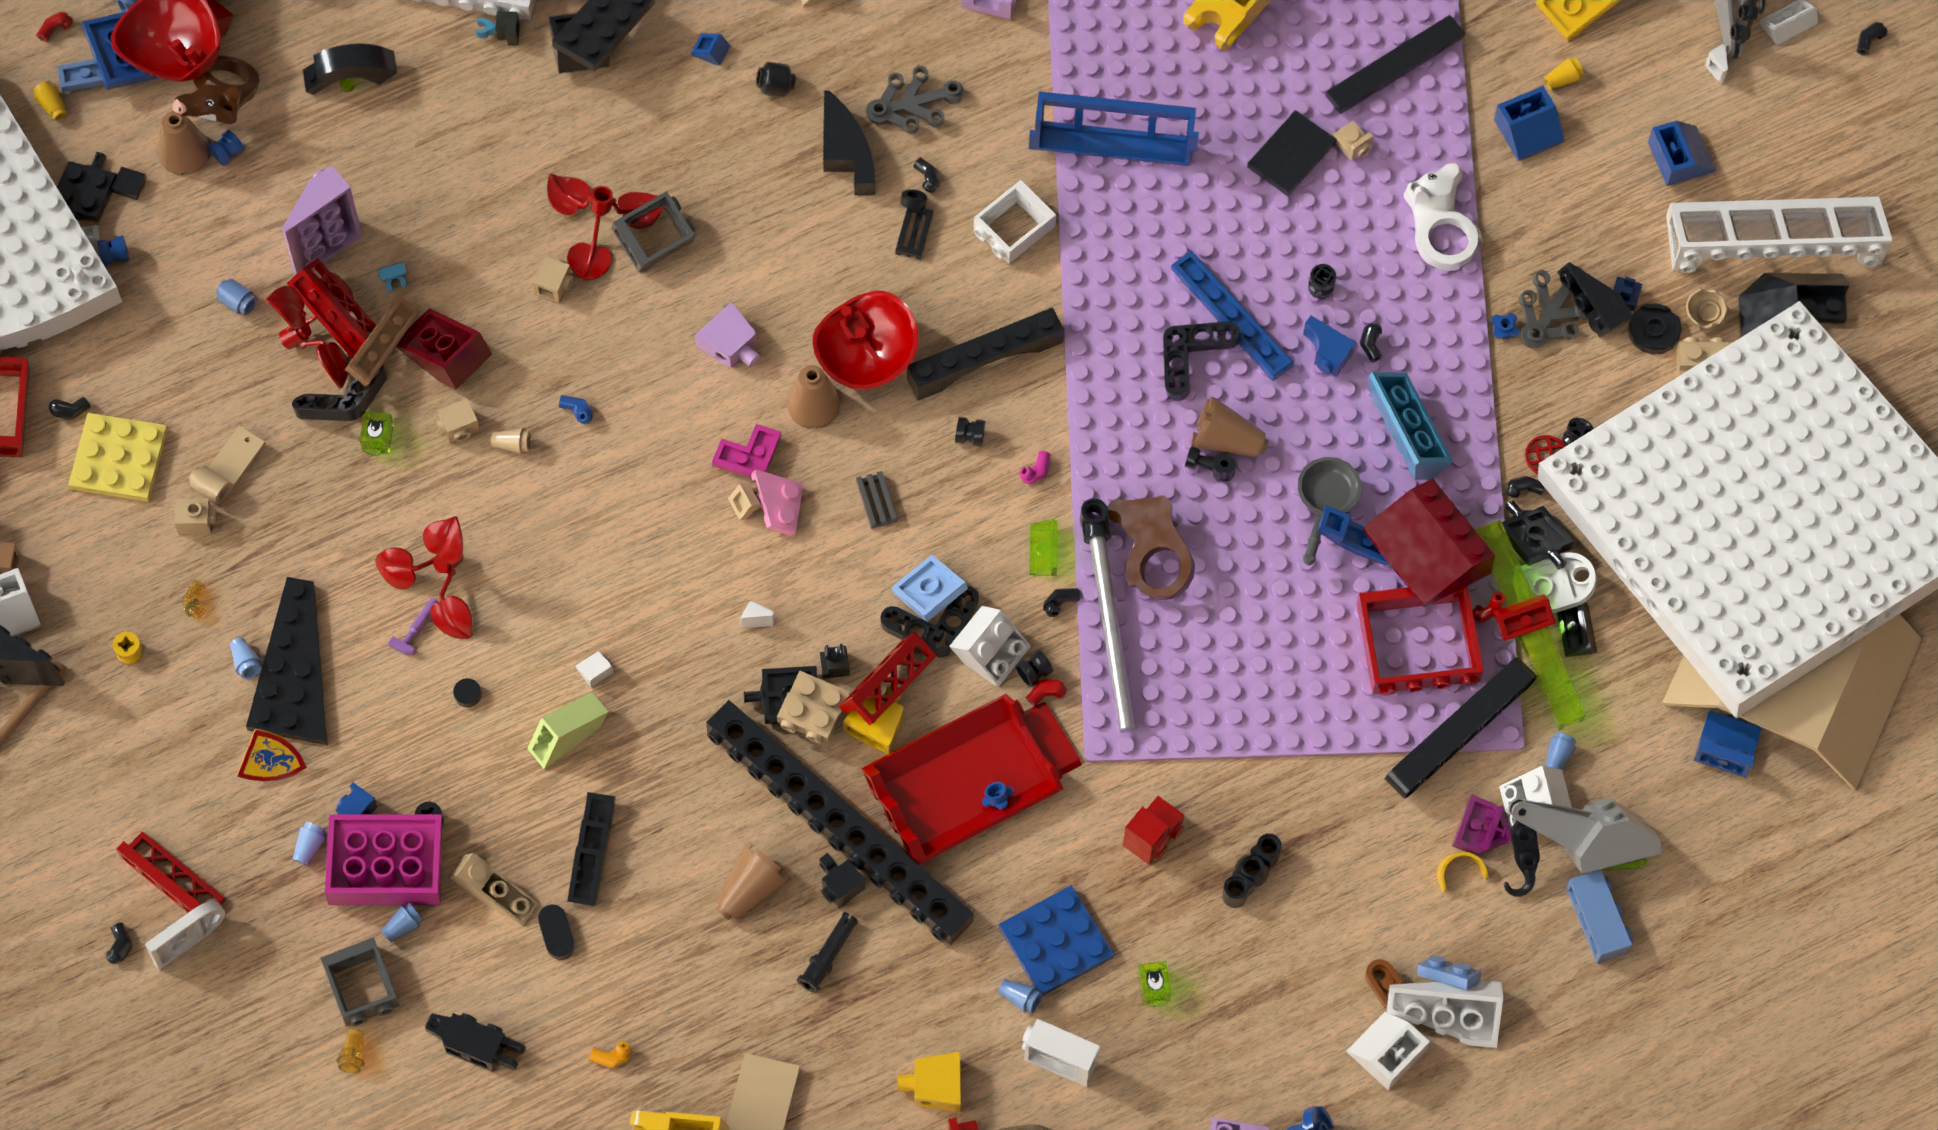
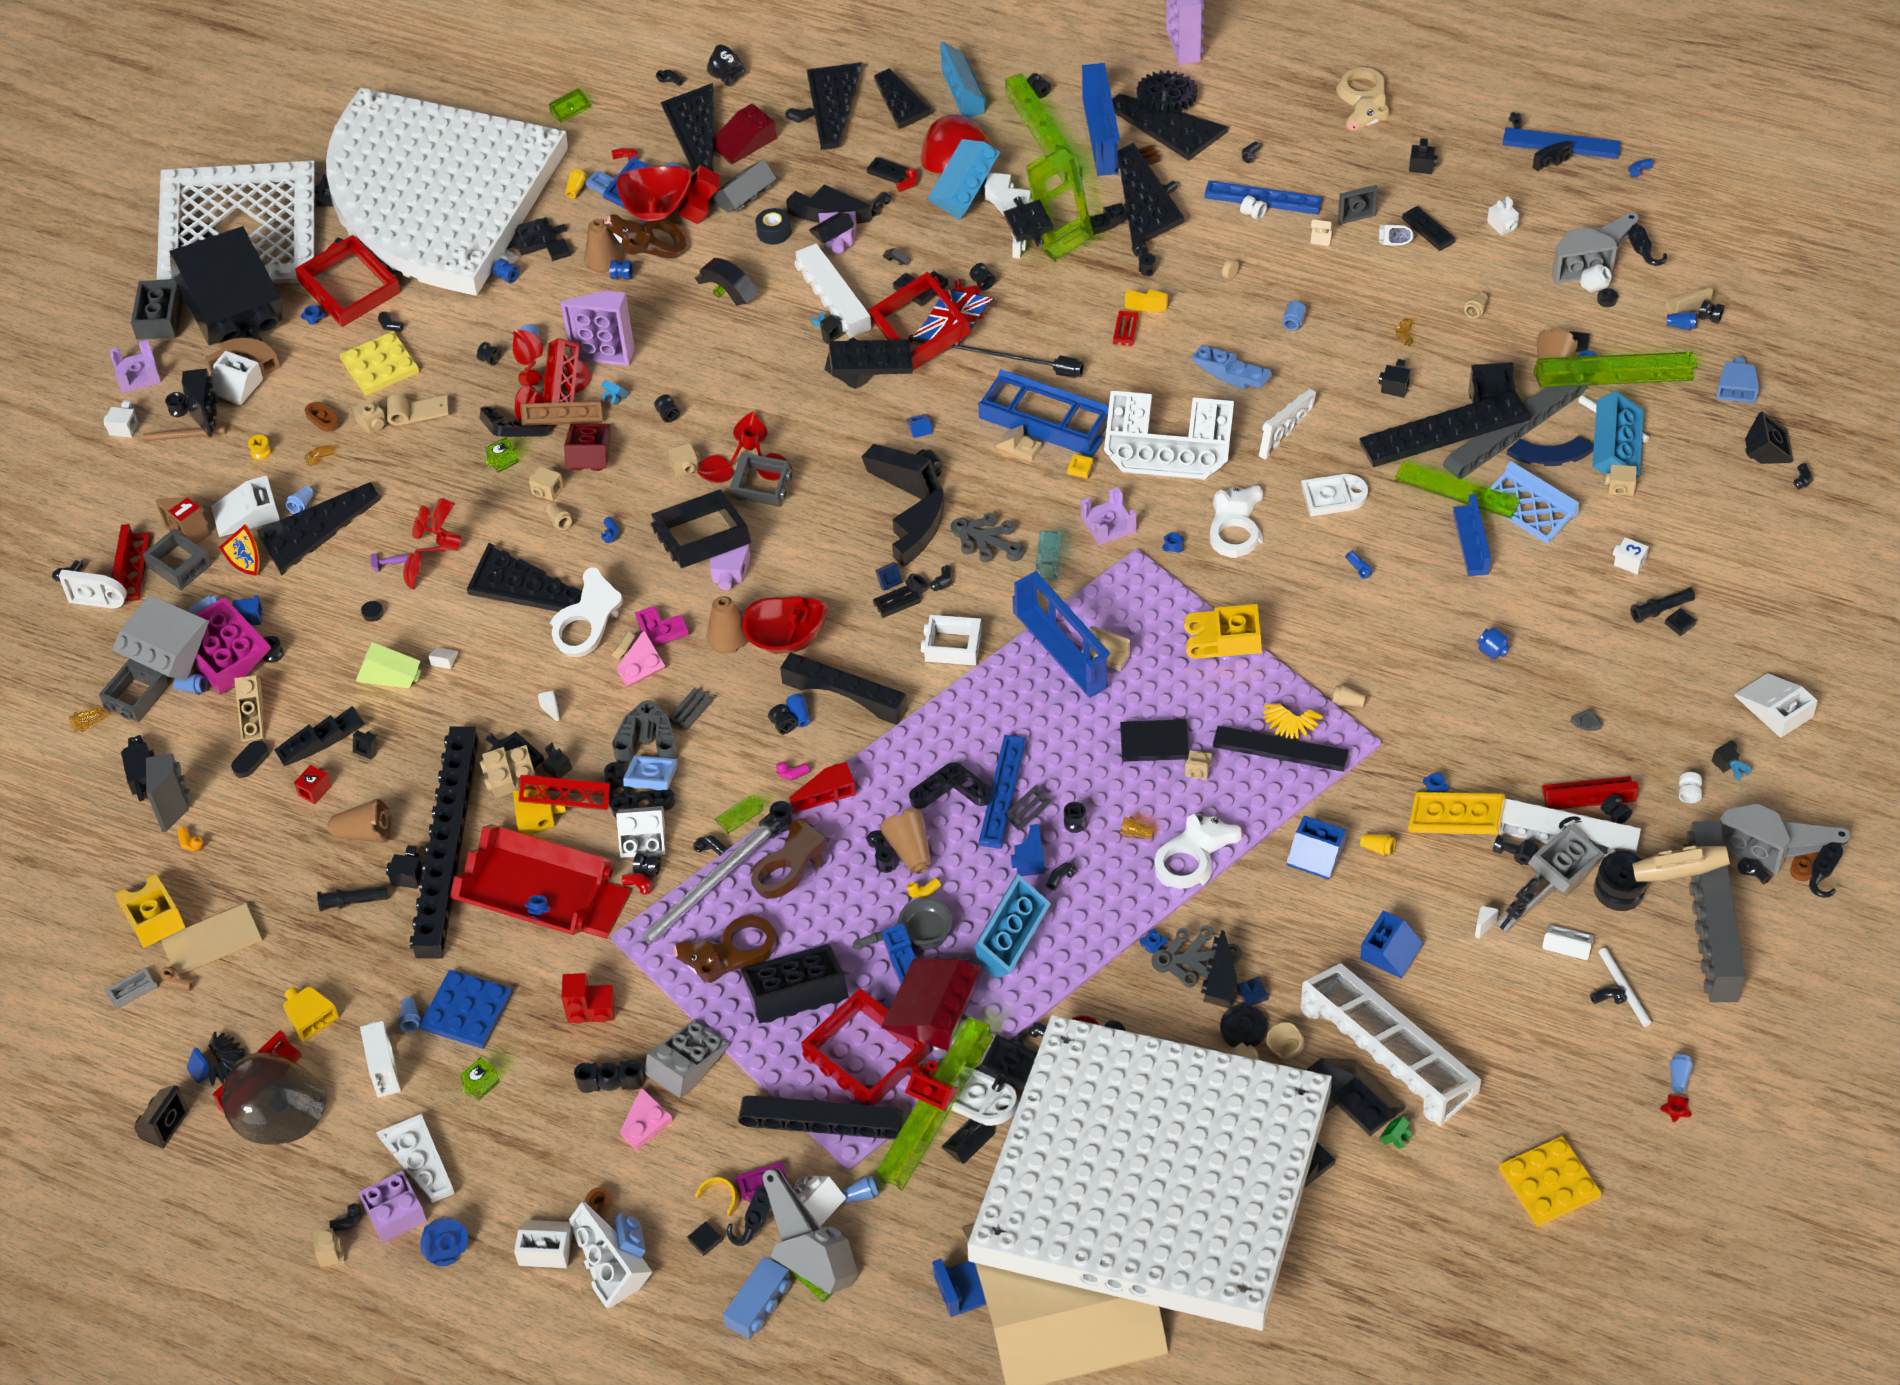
camera: 55 degrees right, 15 degrees down
(144, 558) = (325, 418): none -> dark orange plate
(170, 785) = (183, 517): none -> medium nougat slope
(207, 716) = (247, 504): none -> white slope
(213, 850) = (181, 576): none -> dark grey window
(218, 348) = (488, 353): none -> black wheel
(333, 907) = (162, 637): none -> light grey slope
(468, 244) = (667, 408): none -> black wheel
(543, 1031) = (166, 789): none -> dark grey slope
(567, 535) = (519, 583): none -> black wing
(645, 813) = (365, 744): none -> black tile
(651, 894) = (312, 784): none -> red brick
(674, 290) = (708, 546): none -> black window
(679, 488) = (597, 603): none -> white animal
(763, 106) = (902, 469): none -> black slope
(882, 216) = (888, 576): none -> dark blue tile
(886, 540) = (646, 718): none -> dark grey connector
(971, 409) = (799, 709): none -> blue cone
(991, 67) = (1048, 554): none -> clear light blue brick
(1095, 448) = (826, 787): none -> red slope
(1161, 95) = (1115, 644): none -> tan panel
(1187, 1093) = (418, 1156): none -> white wing
(1201, 683) = (714, 959): none -> reddish brown animal
(1277, 310) = (1039, 796): none -> black tile
(1286, 463) = (923, 891): none -> yellow arm
(1290, 792) = (684, 1058): none -> light grey slope
(1294, 641) = (795, 983): none -> black slope
(1323, 875) = (644, 1120): none -> bright pink wing
(1376, 35) = (1289, 723): none -> yellow hair
(1376, 245) = (1134, 828): none -> clear yellow cone
(1495, 915) = (704, 1238): none -> black tile
(1864, 300) = (1394, 1131): none -> green tile
(1870, 18) = (1622, 983): none -> white bar

